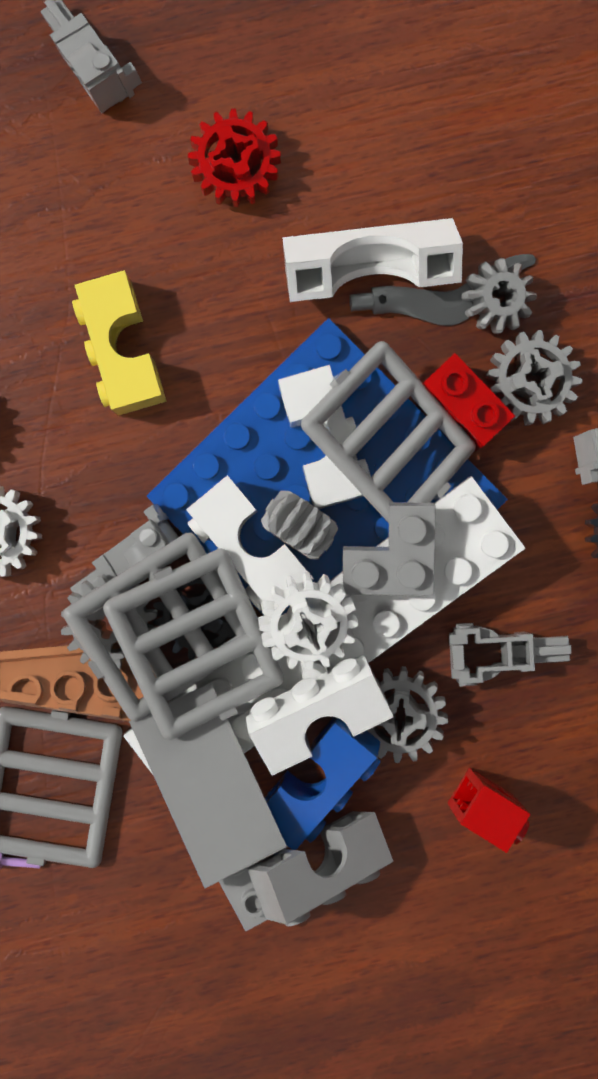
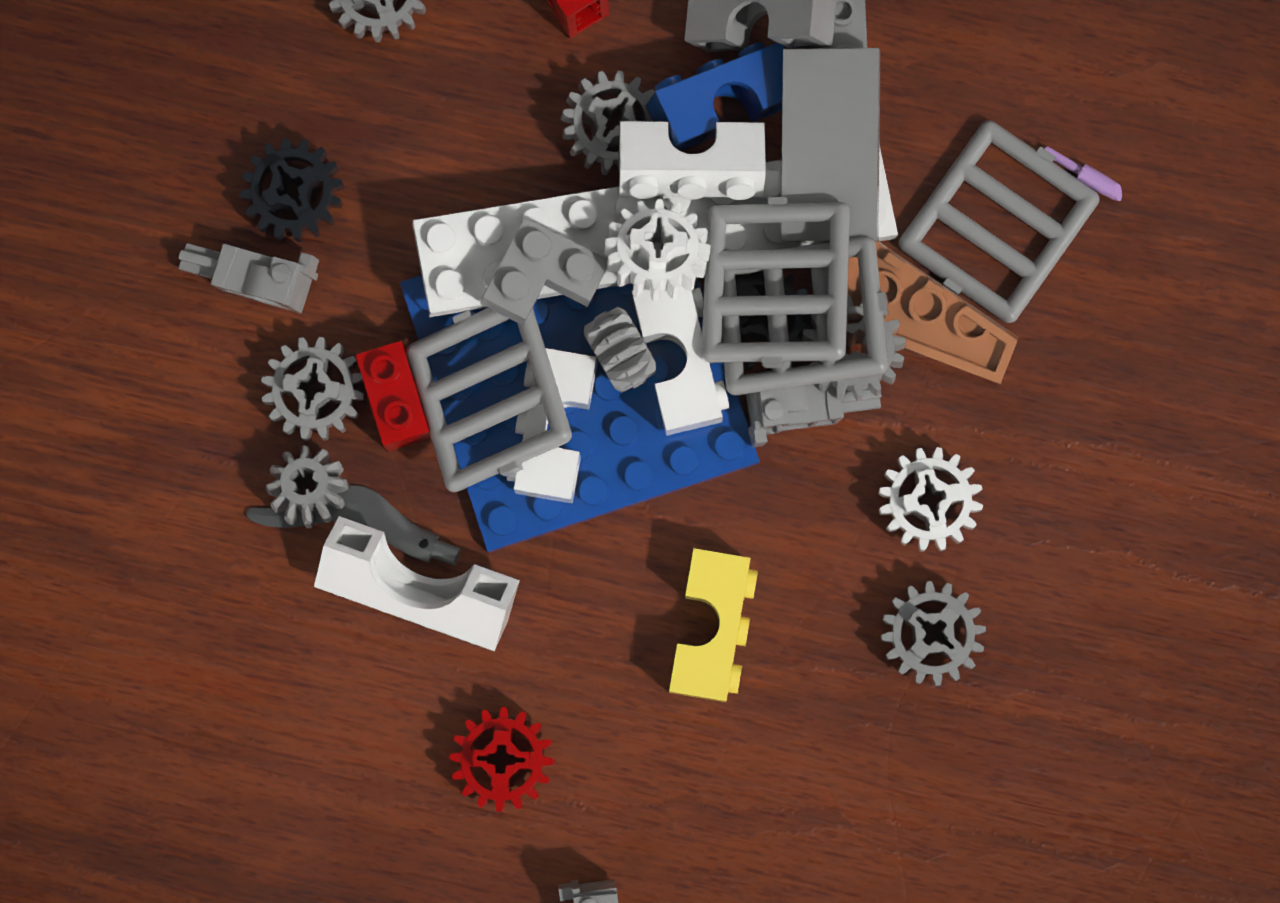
camera: 140 degrees left, 5 degrees down
(518, 652) = (465, 127): light grey piece -> none

